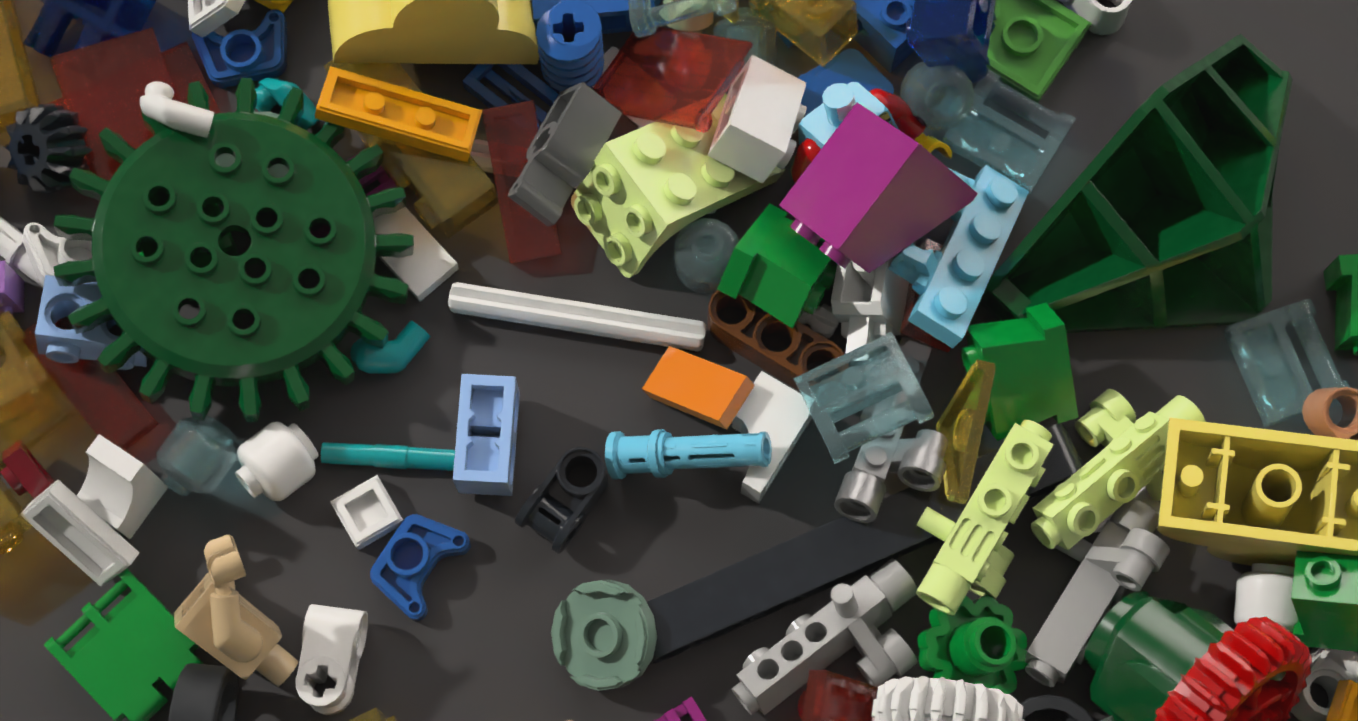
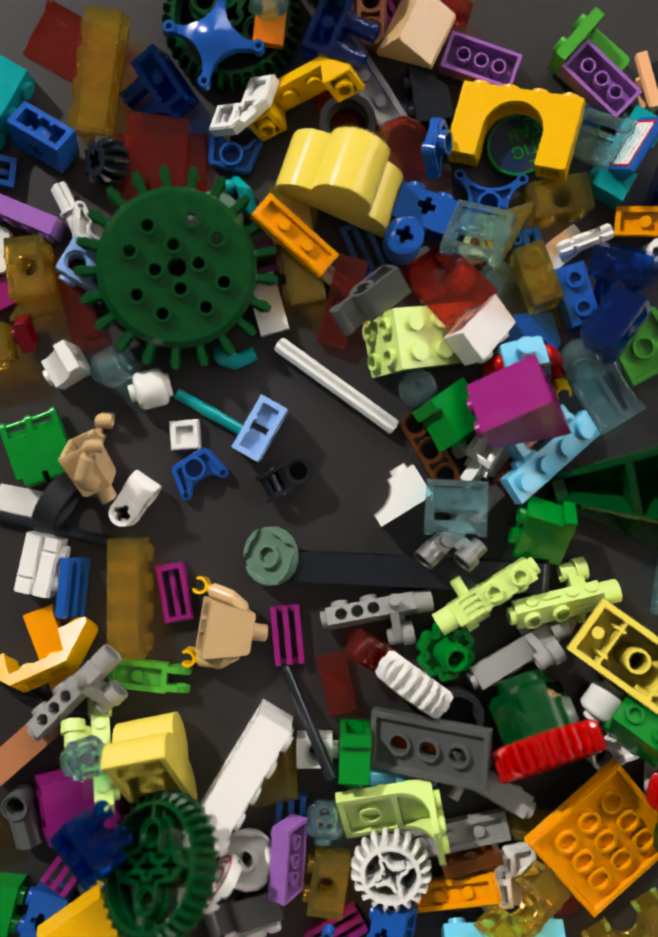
camera: 30 degrees right, 15 degrees up
(79, 533) = (37, 379): white tile -> none
(158, 105) = (173, 182): white arm -> none
(663, 453) = (344, 481): medium azure pin -> none
(698, 387) = (378, 455): orange tile -> none
(963, 427) = (498, 545): clear yellow tile -> none

